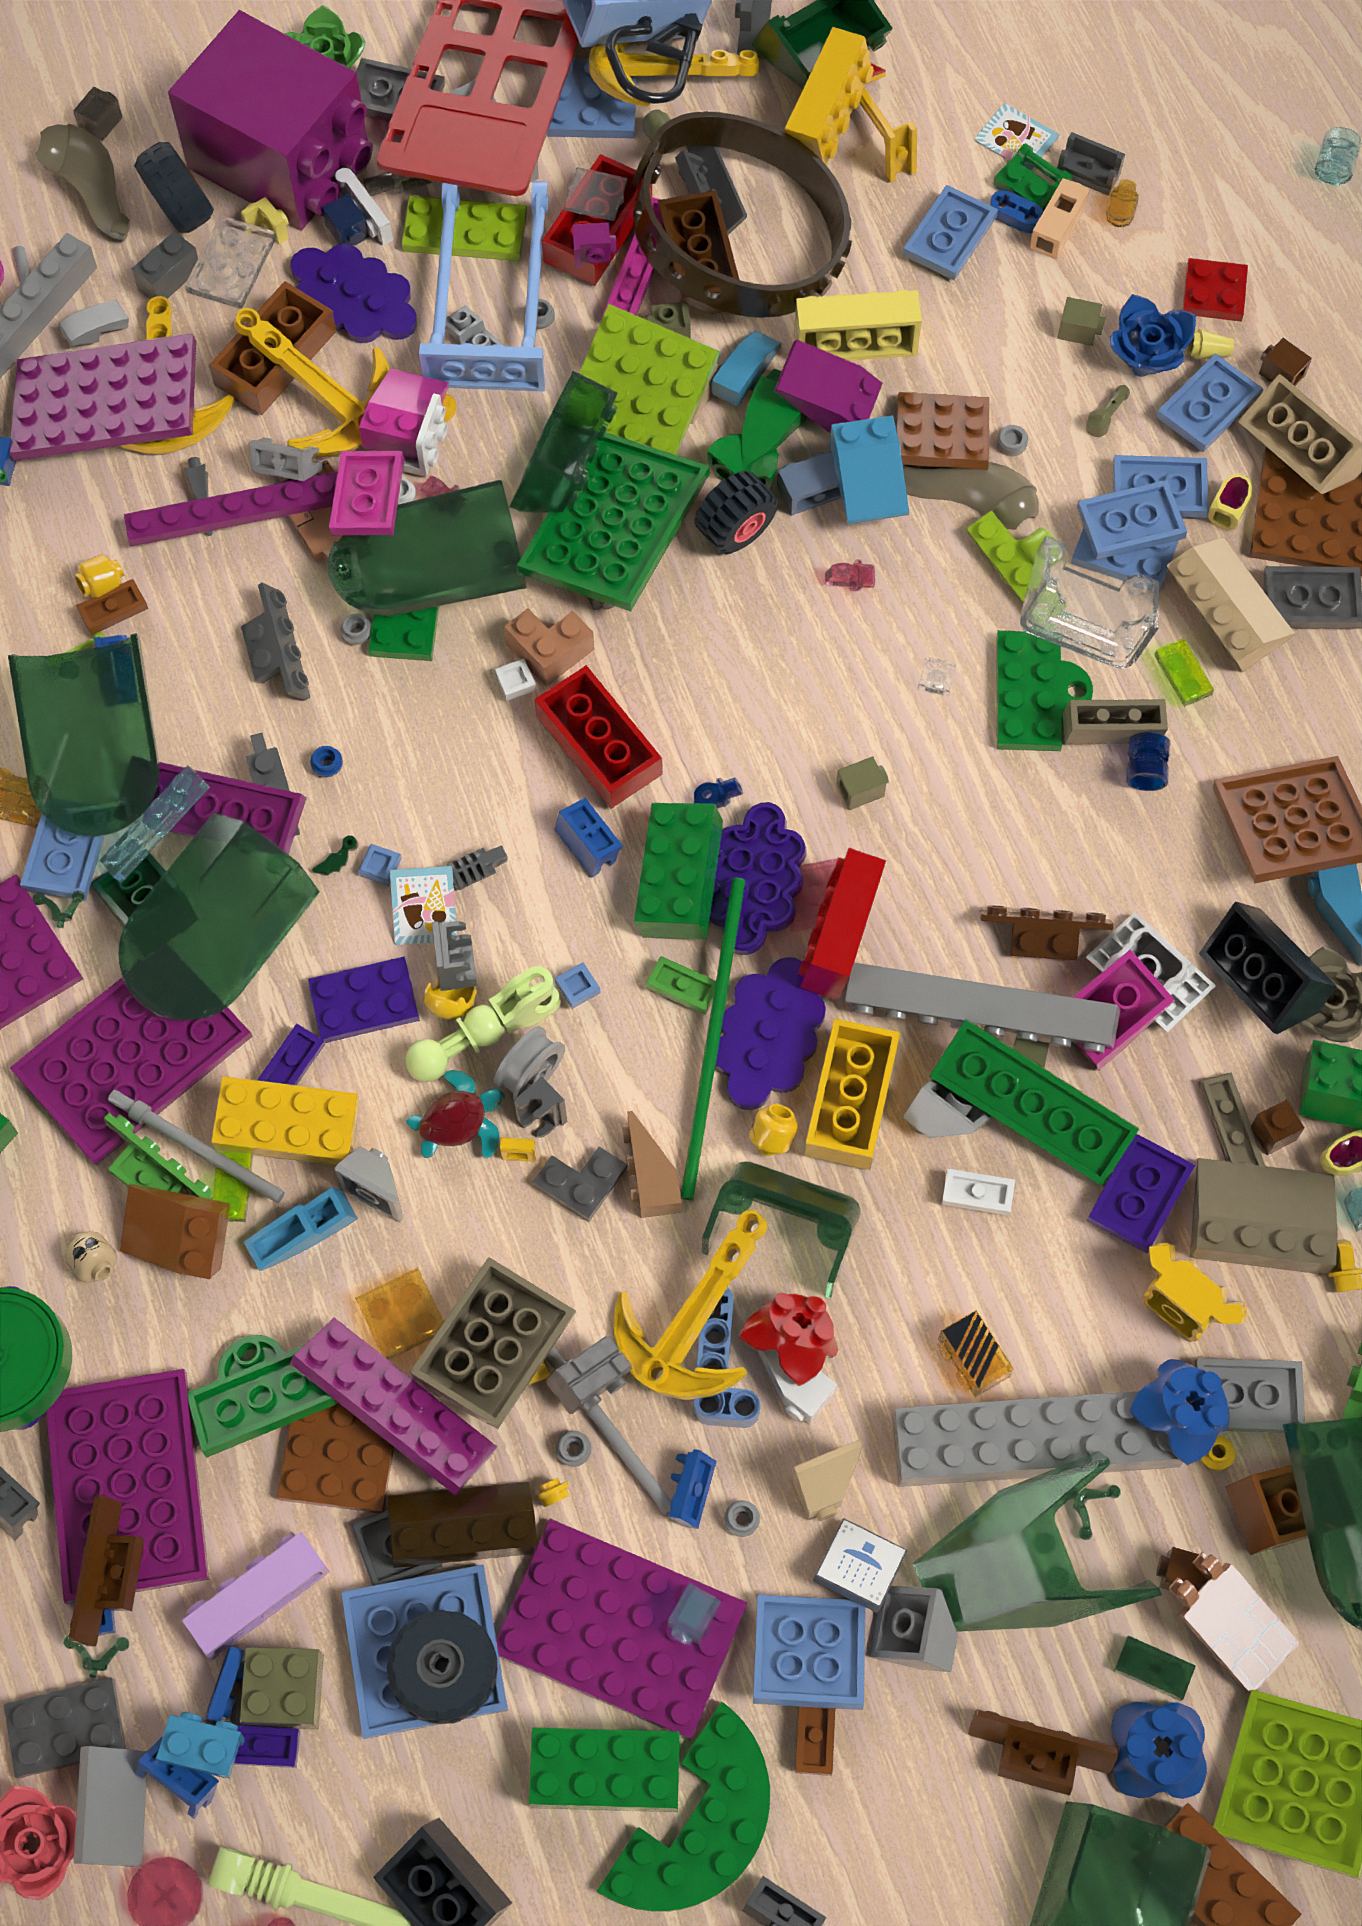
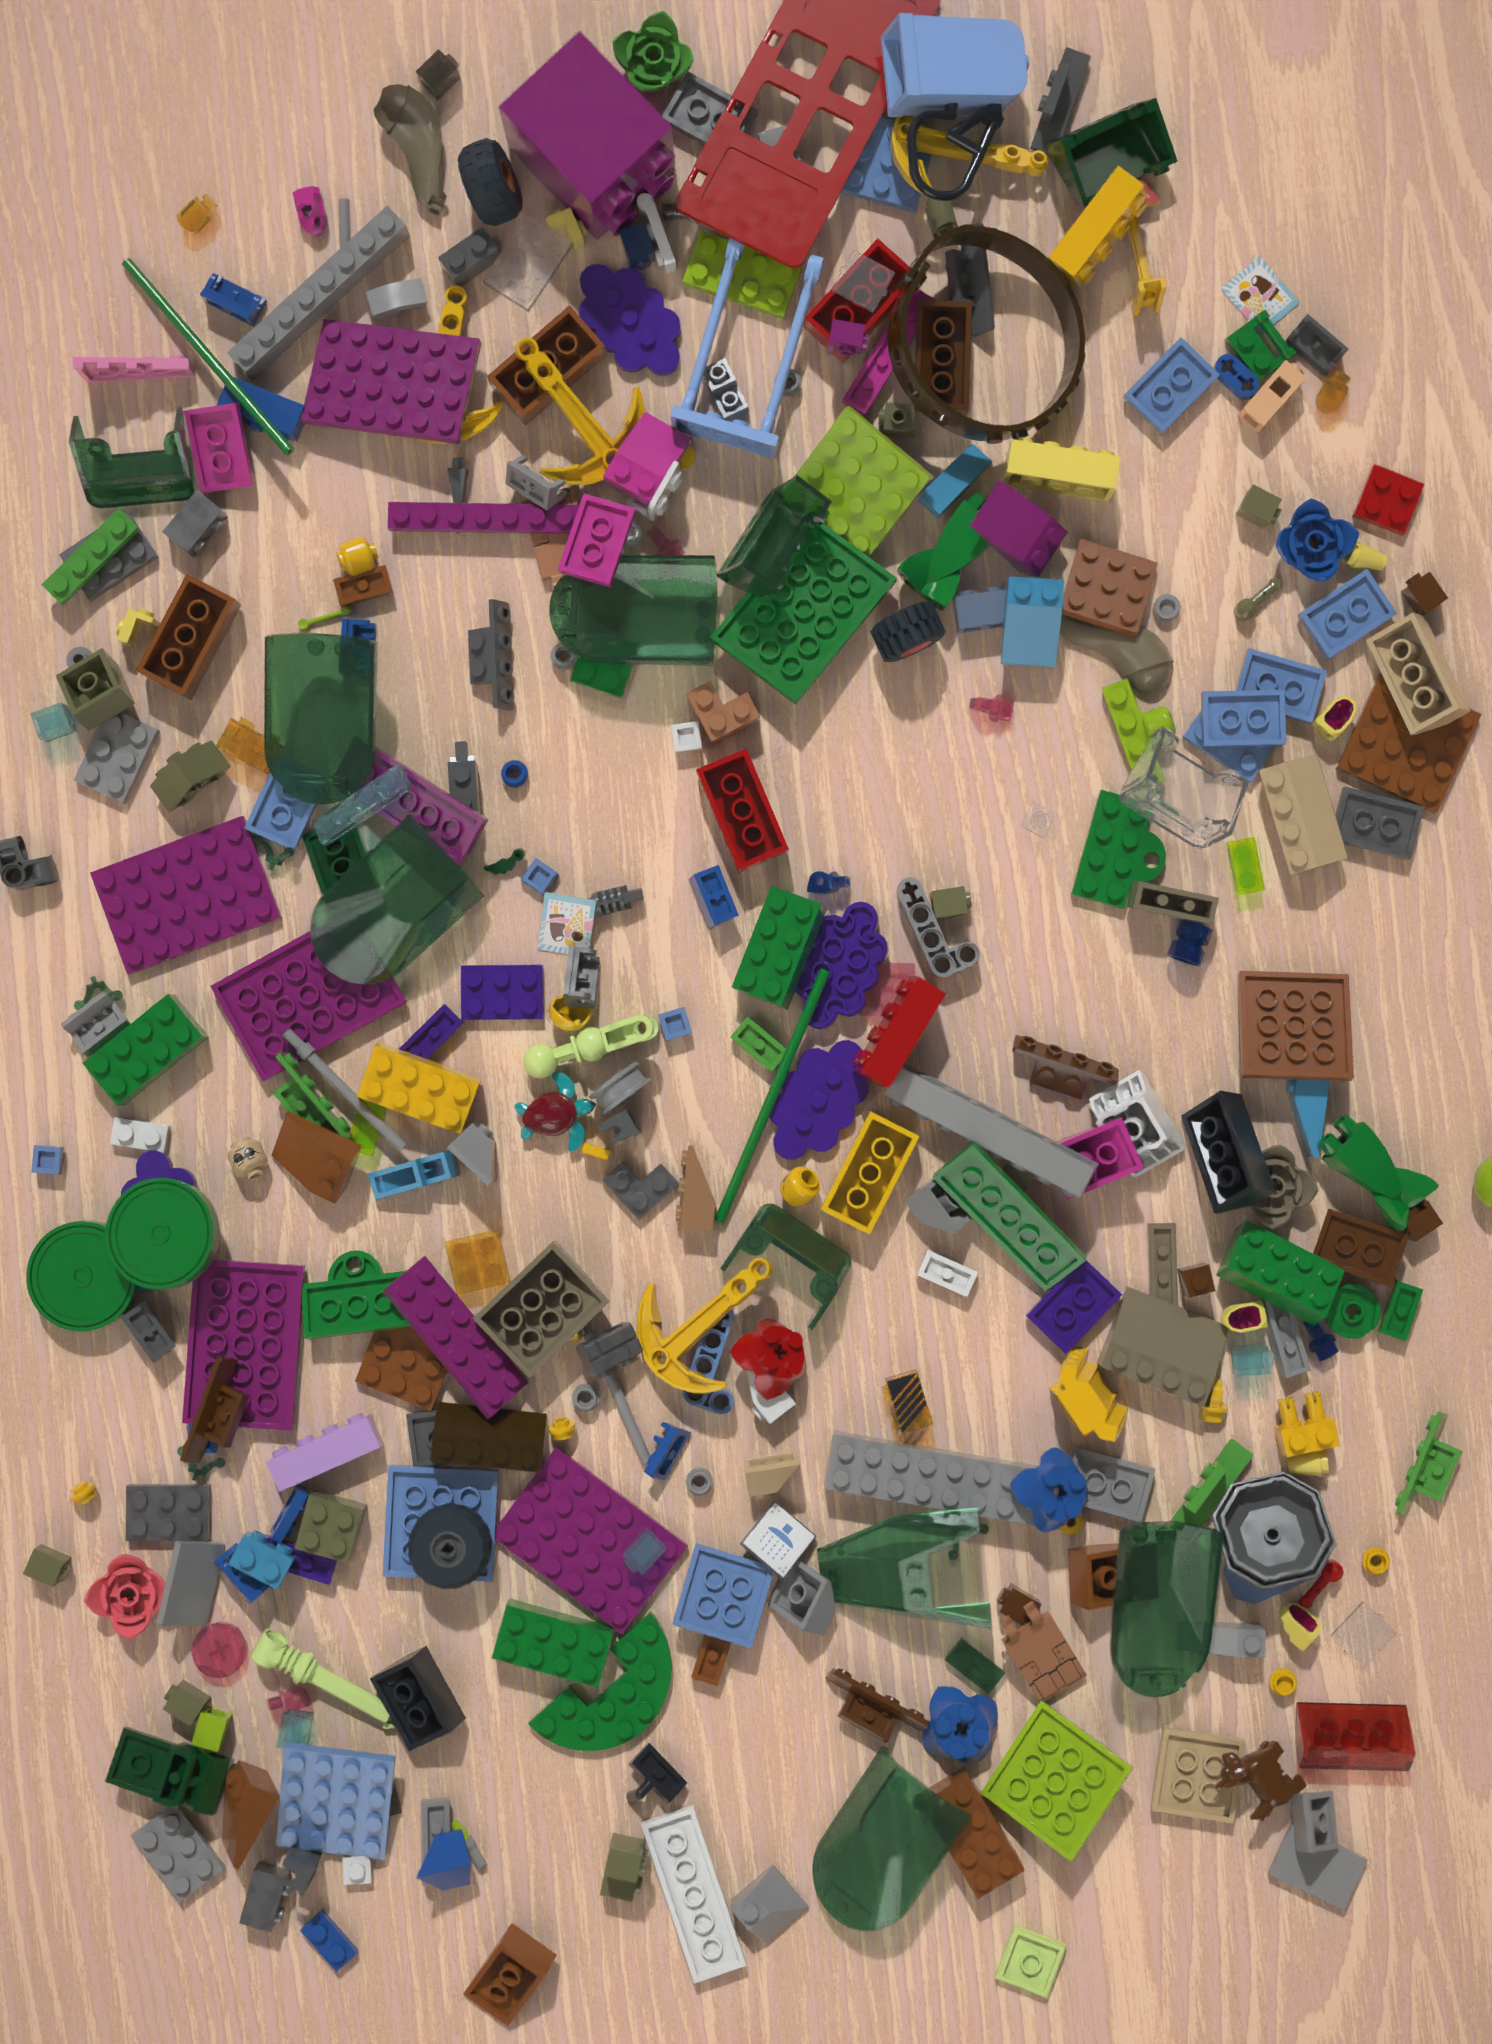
camera: 15 degrees right, 20 degrees up
(850, 813) = (932, 926): none -> light grey beam

